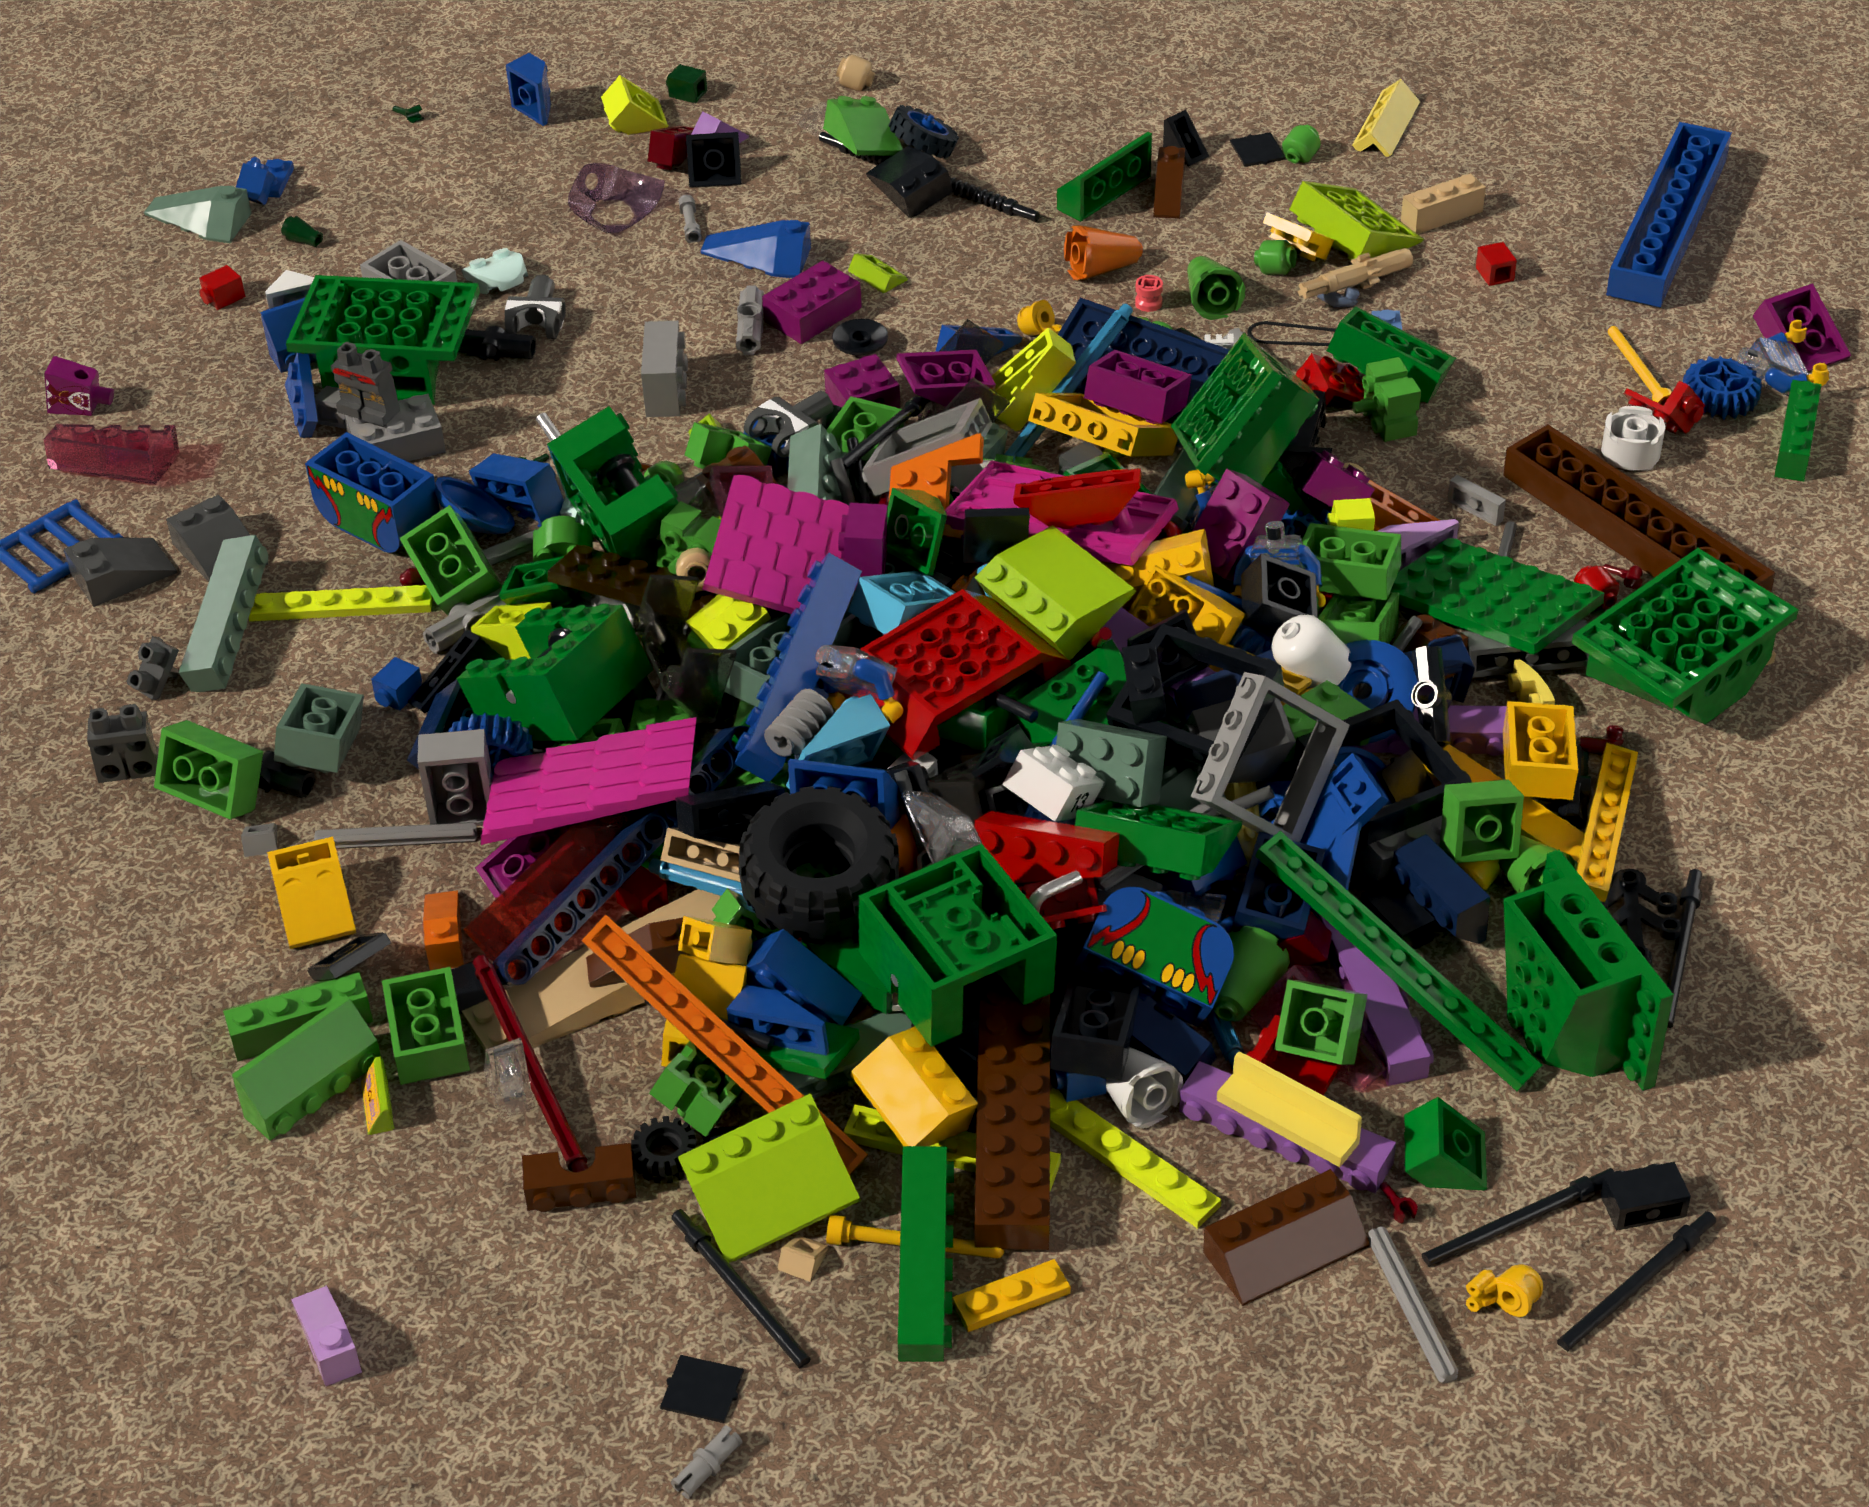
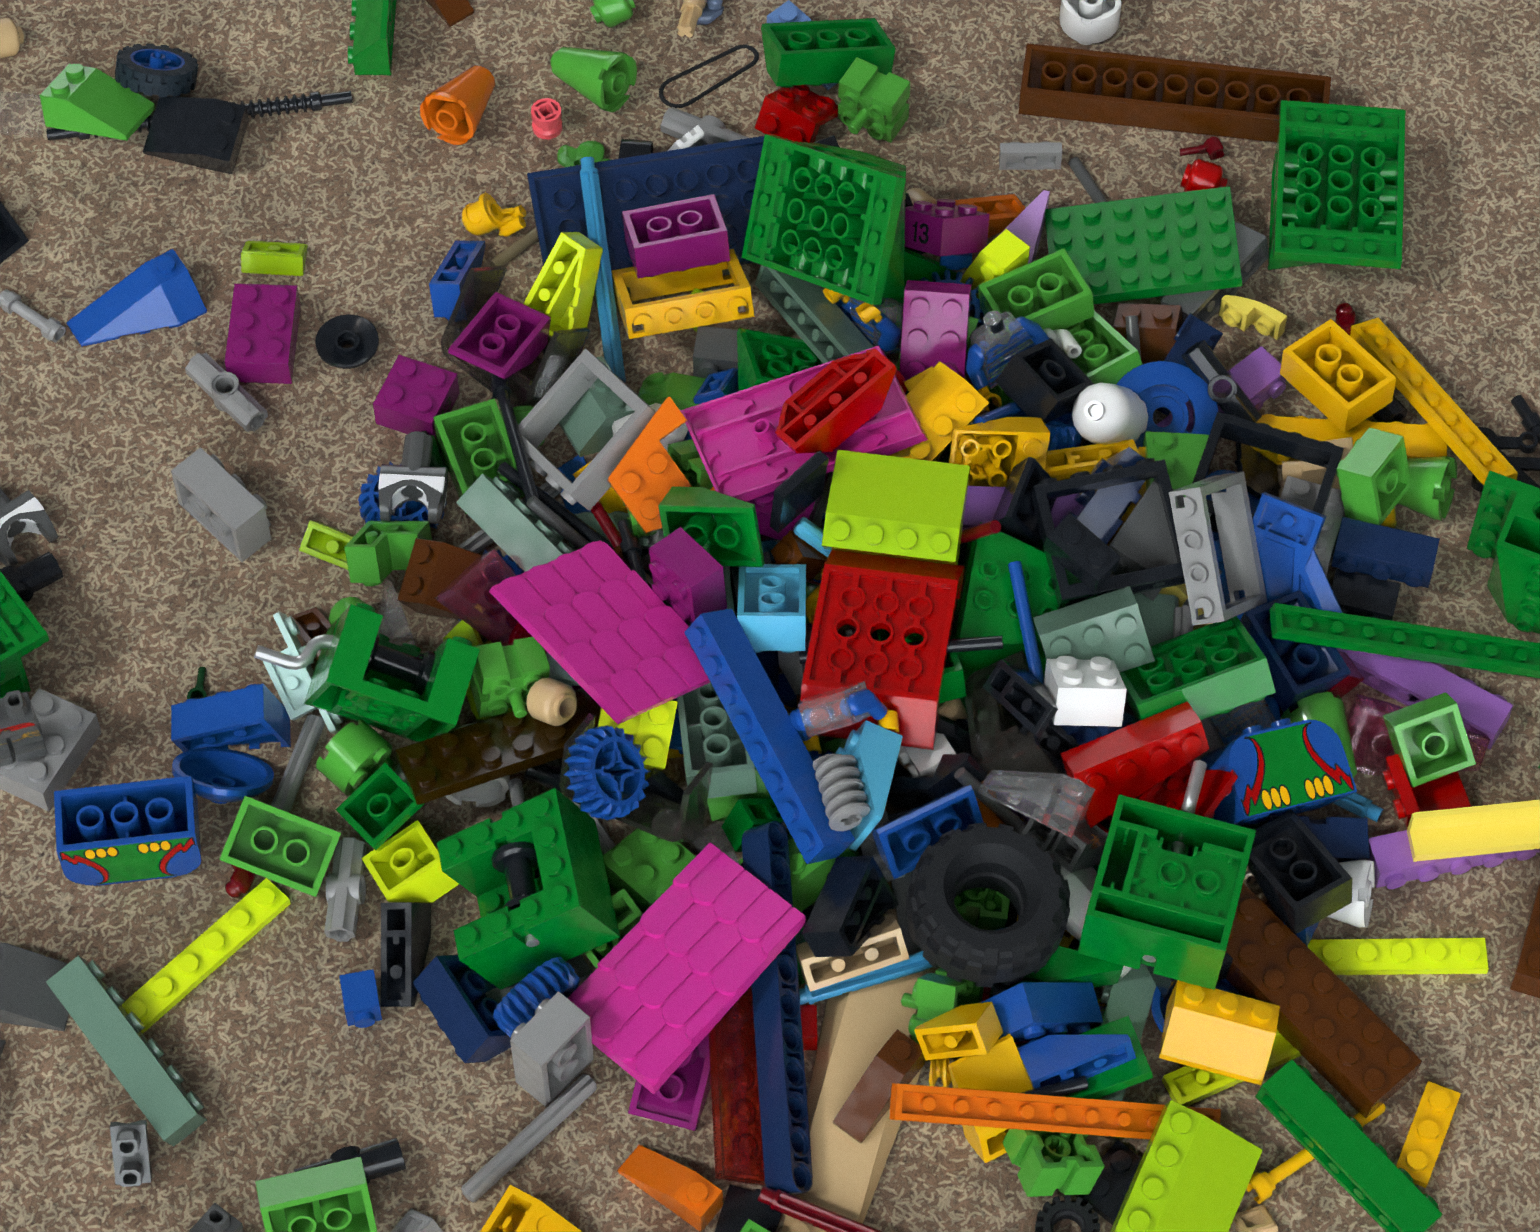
camera: 45 degrees left, 15 degrees up
(318, 728) = (364, 1094): sand green brick -> none
(652, 607) = (606, 772): none -> blue gear
(1336, 597) = (1065, 341): none -> white arm

